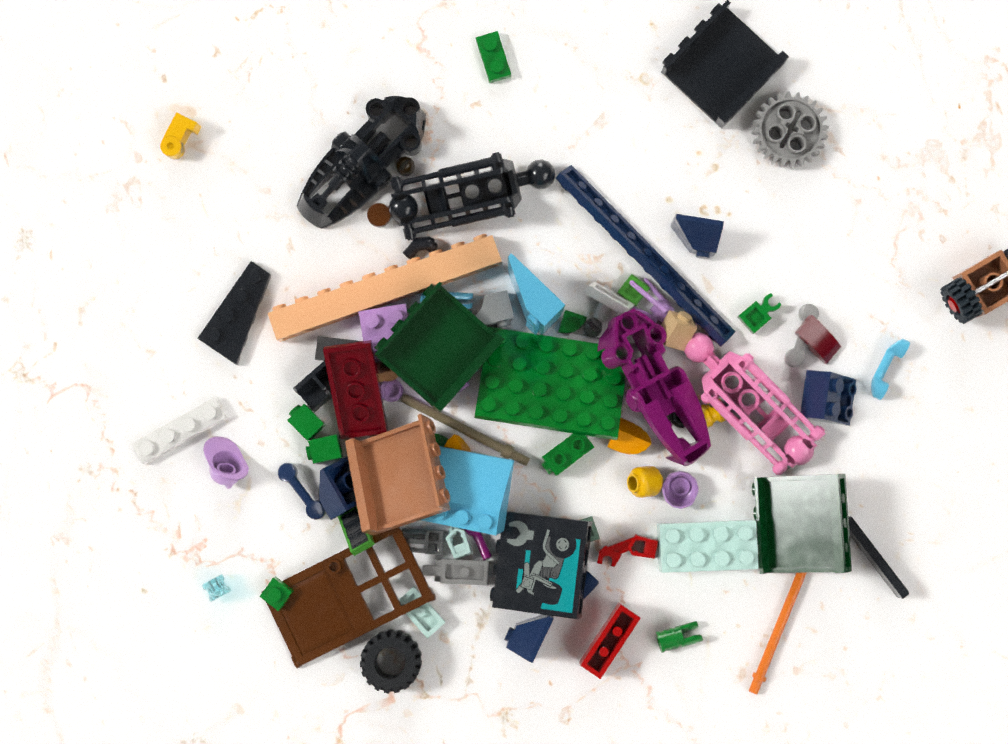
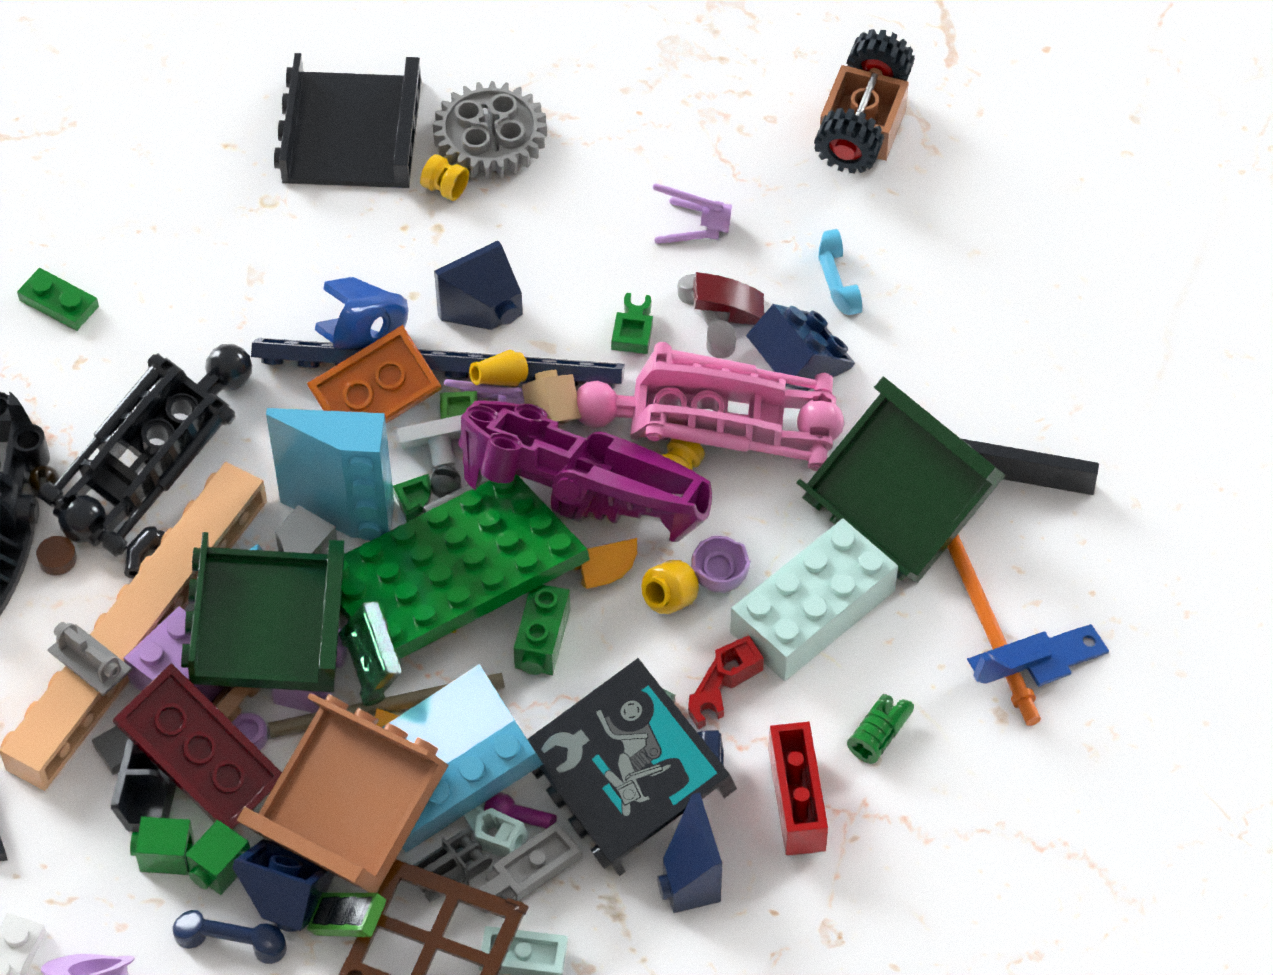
camera: 40 degrees left, 30 degrees down
(341, 299) = (87, 657): none -> light grey hinge
(470, 409) = (371, 652): none -> clear green plate
(600, 247) = (378, 379): none -> orange tile
(625, 200) = (362, 307): none -> blue piece
(665, 296) = (502, 369): none -> yellow cone
(741, 142) = (444, 177): none -> yellow wheel
(786, 663) = (1042, 656): none -> blue piece
(856, 280) = (714, 215): none -> lavender plant

